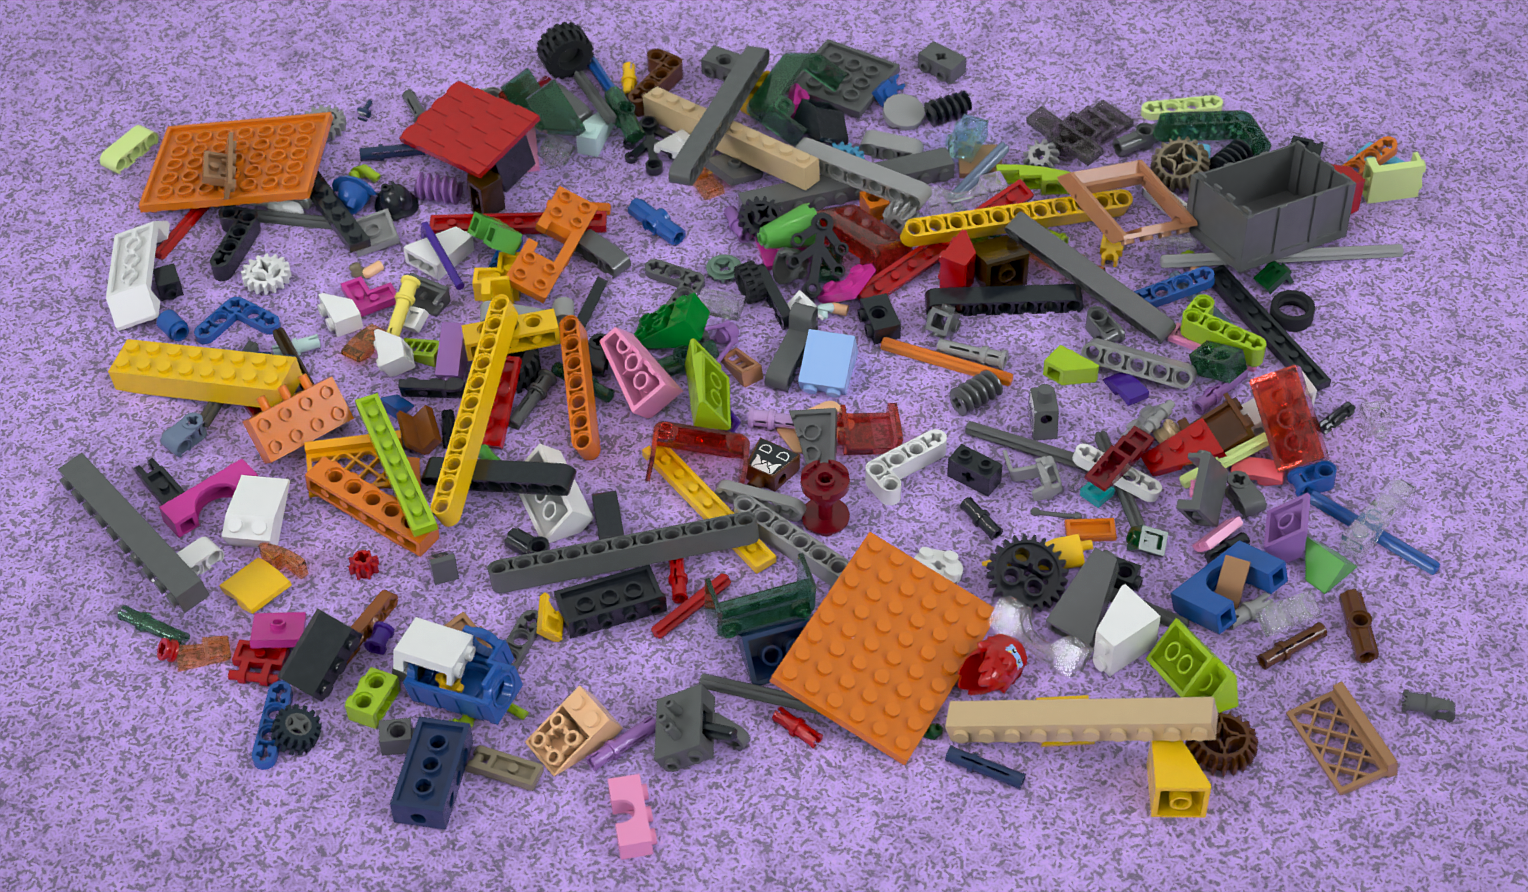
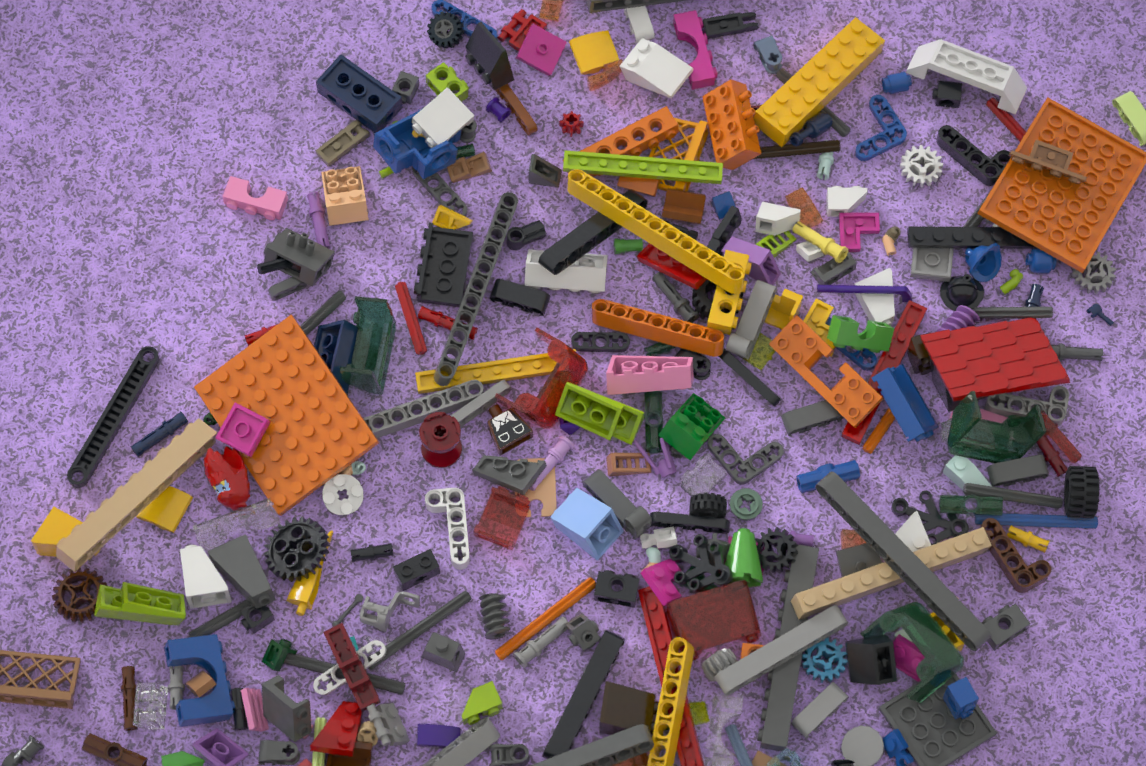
camera: 115 degrees right, 20 degrees up
(332, 160) = (1040, 261): none -> blue head
(400, 154) = (1014, 312): none -> dark grey axle
(549, 180) = (906, 403): none -> blue door
(618, 431) = (595, 335): none -> black beam
(820, 41) = (961, 698): none -> blue brick
(933, 671) = (243, 429): none -> dark pink plate
(957, 262) = (633, 673): red slope -> none
(996, 820) = (113, 417): none -> black gear
(1091, 529) = (316, 625): orange tile -> none

